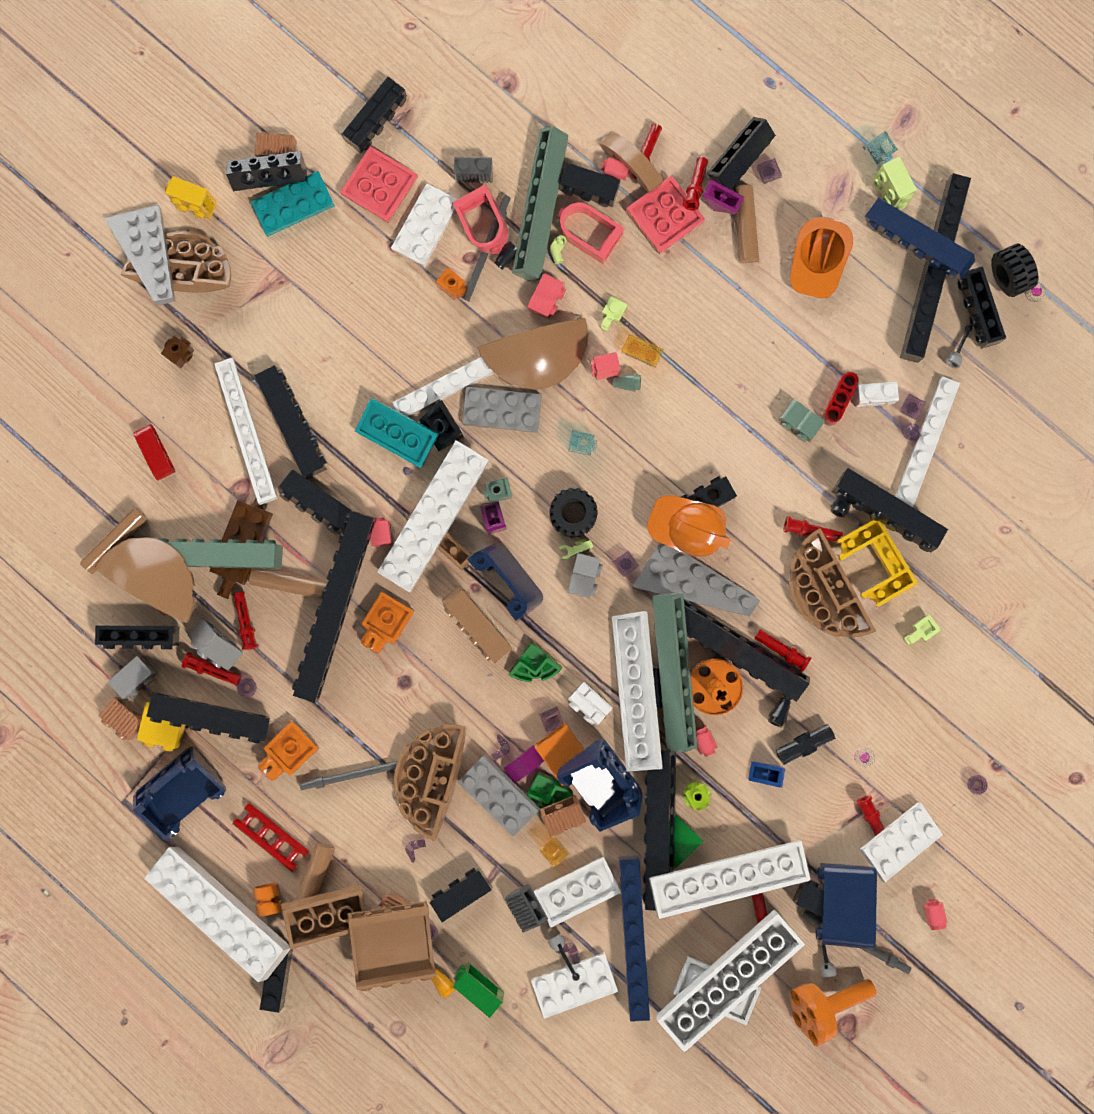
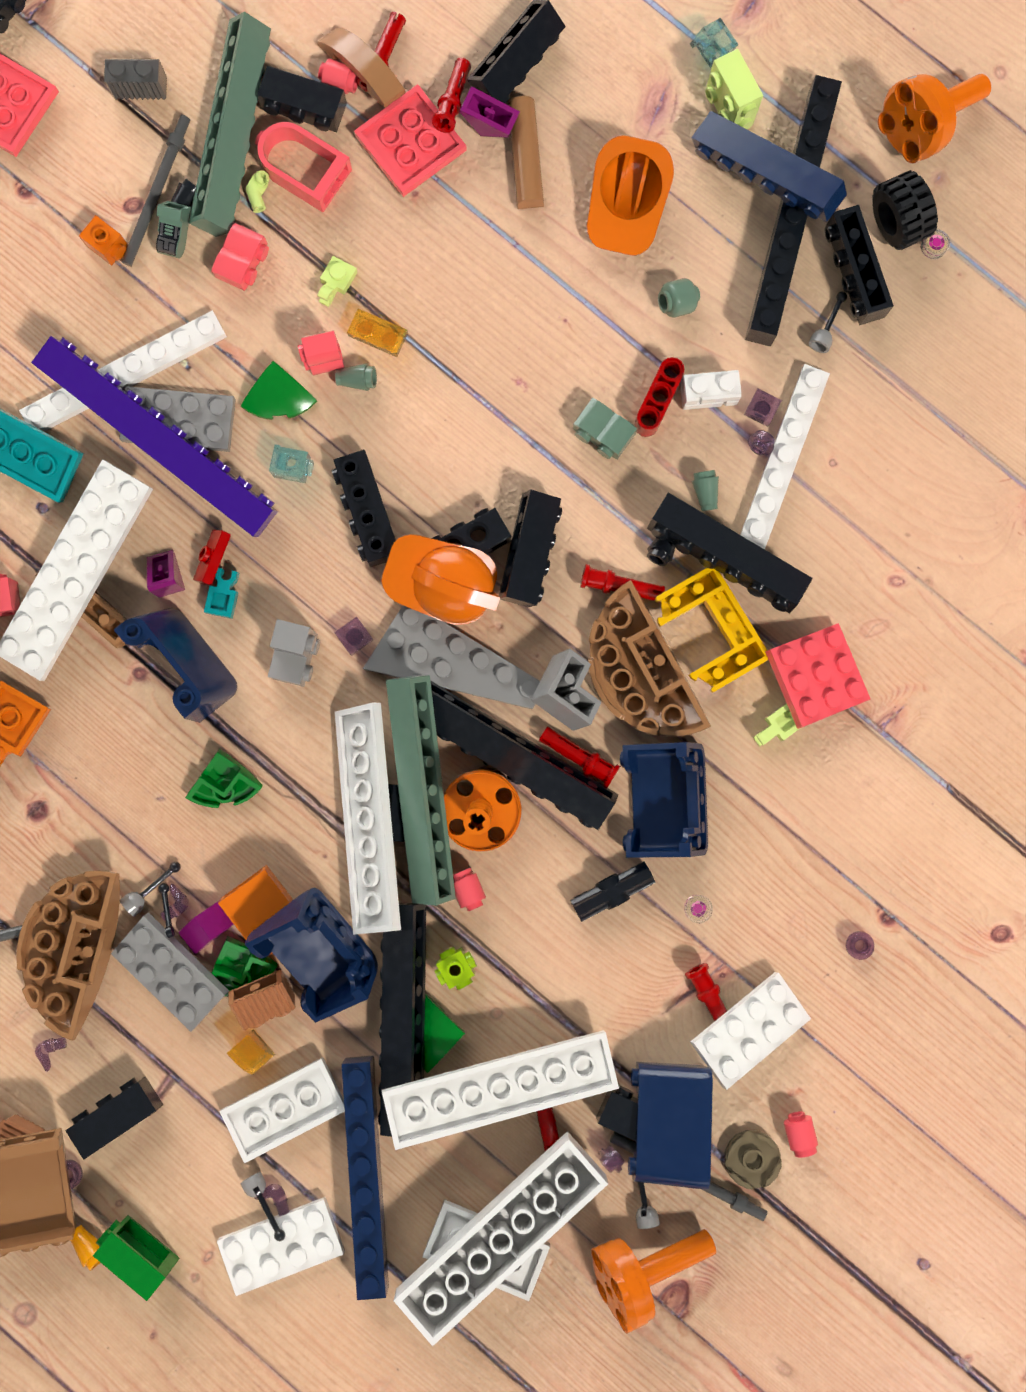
camera: 10 degrees left, 0 degrees up
(425, 225) = (69, 159): white plate -> none
(442, 422) = (89, 436): black slope -> none
(472, 201) = (131, 124): coral window -> none
(473, 746) = (134, 901): none -> hinge
(476, 624) = (136, 726): medium nougat wedge -> none
(489, 423) = (154, 436): none -> dark purple brick
(493, 737) = (163, 889): none -> black hinge
(500, 276) = (172, 228): none -> sand green leg
(505, 491) = (178, 538): sand green brick -> none
(526, 908) = (208, 1136): dark grey brick -> none
(527, 507) = (211, 557): none -> red plate
(533, 536) = (222, 599): none -> teal plate
(539, 355) = (226, 338): medium nougat brick -> none
(551, 719) = (246, 861): plate -> none
(572, 394) = (277, 395): none -> green brick
(580, 497) = (263, 545): black tyre -> none
(581, 546) = (289, 612): yellowish green plate -> none
(590, 704) = (301, 837): white brick -> none
(635, 474) = (366, 507): none -> black brick
(749, 504) = (530, 548): none -> black brick
(767, 774) = (556, 935): blue slope -> none
(769, 171) = (557, 77): plate -> none
(772, 606) = (561, 692): none -> light grey brick
(779, 713) = (575, 847): black cone -> none
(803, 929) = (611, 1159): none -> plate
(843, 681) = (667, 800): none -> dark blue windscreen
(854, 328) = (678, 297): none -> sand green head
(872, 463) = (706, 489): none -> sand green cone
(901, 931) = (752, 1159): none -> dark tan tile
(950, 596) = (817, 675): none -> coral plate
(1028, 203) = (922, 113): none -> orange piece

